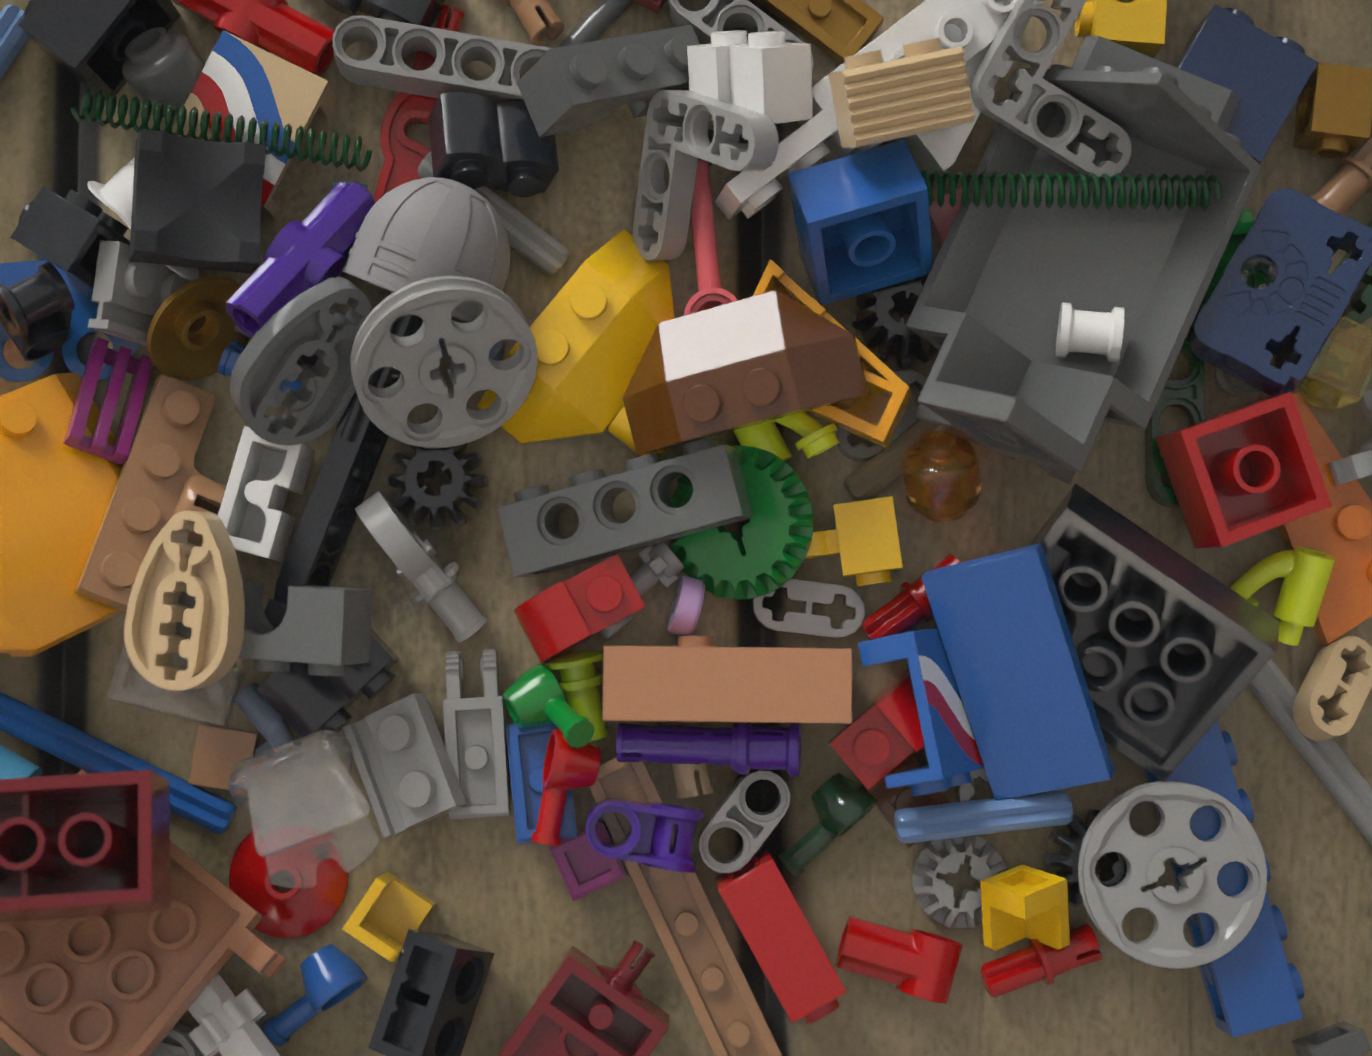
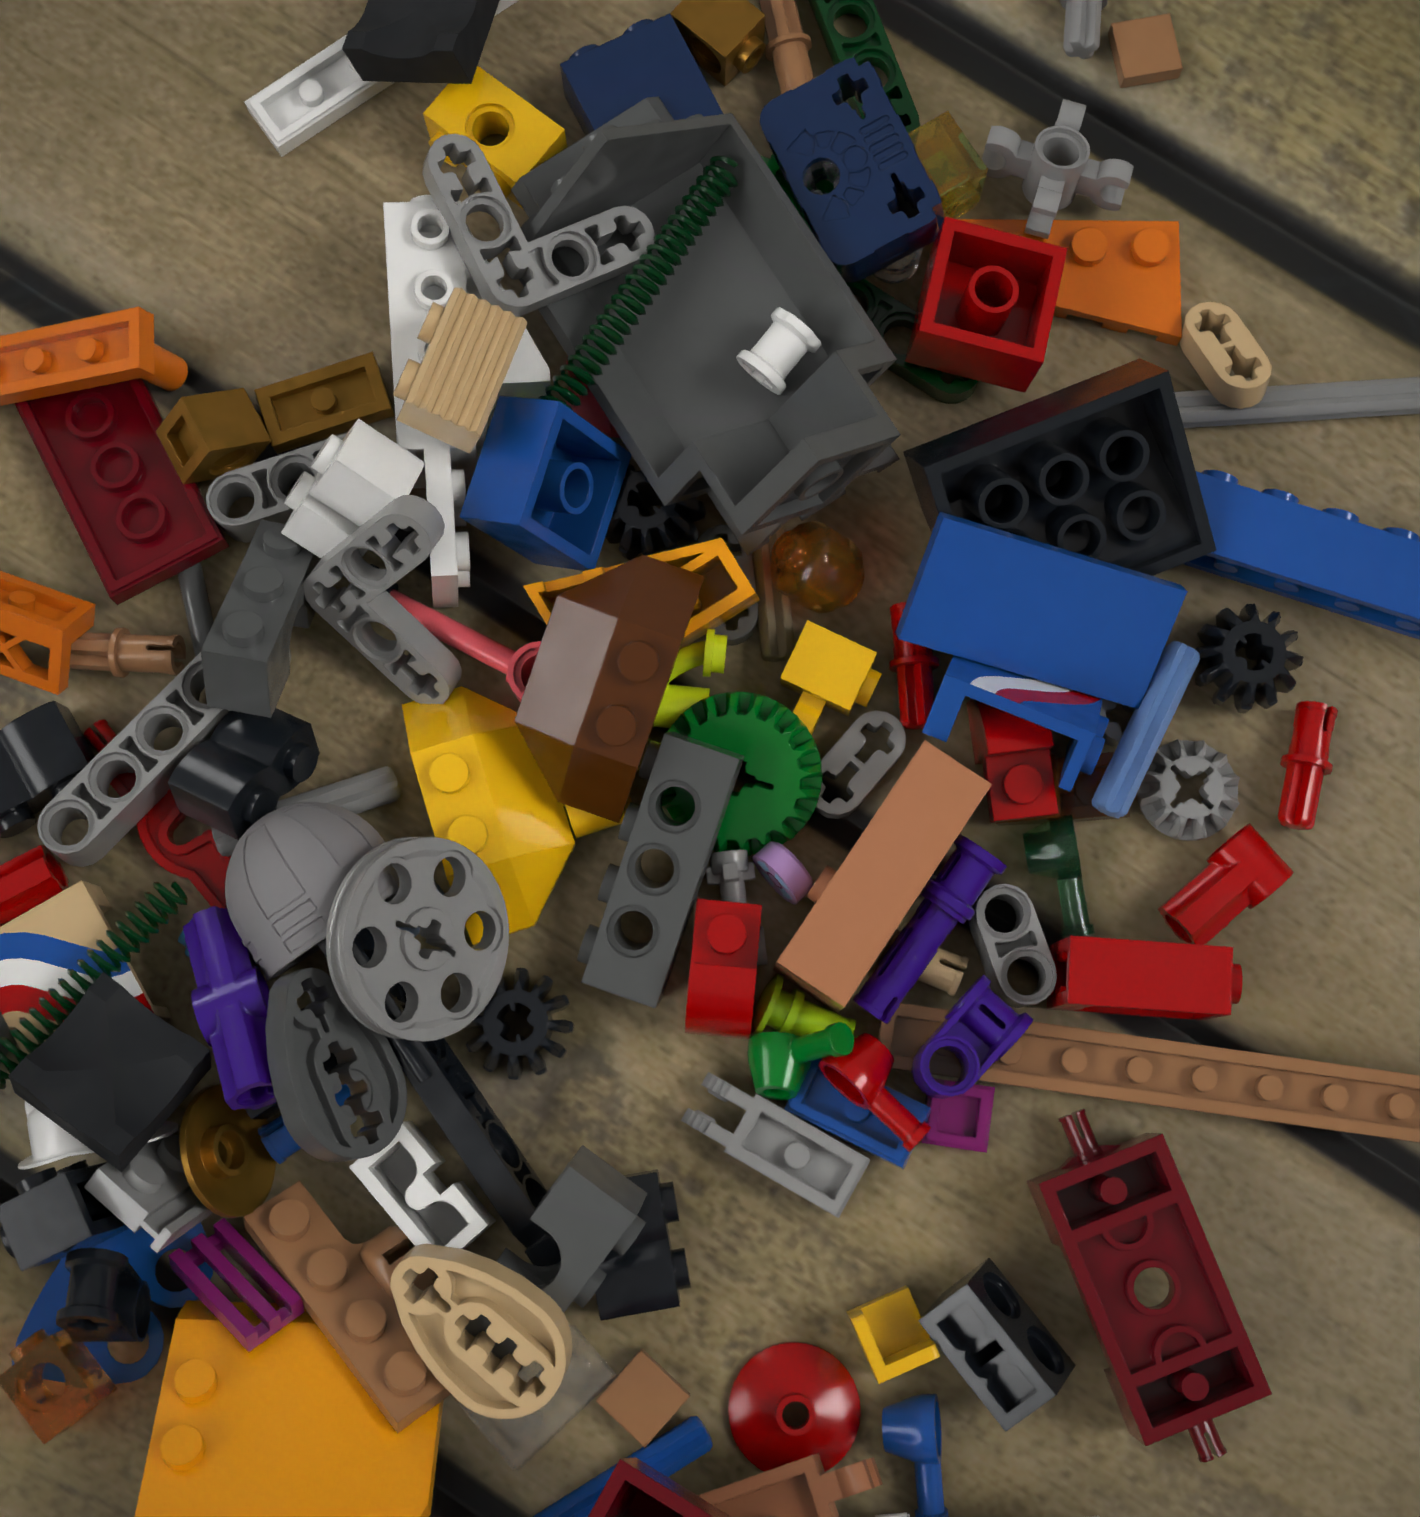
camera: 50 degrees left, 5 degrees down
(264, 718) = (640, 1330): sand blue arm -> none
(305, 808) = (742, 1345): clear piece -> none
(404, 765) = (761, 1227): light grey plate -> none
(417, 563) = (578, 1090): light grey pin -> none
(1025, 905) = (1249, 743): yellow panel -> none
(1199, 888) = (1329, 580): light grey wedge -> none
(1302, 591) = (1119, 323): neon yellow plant -> none

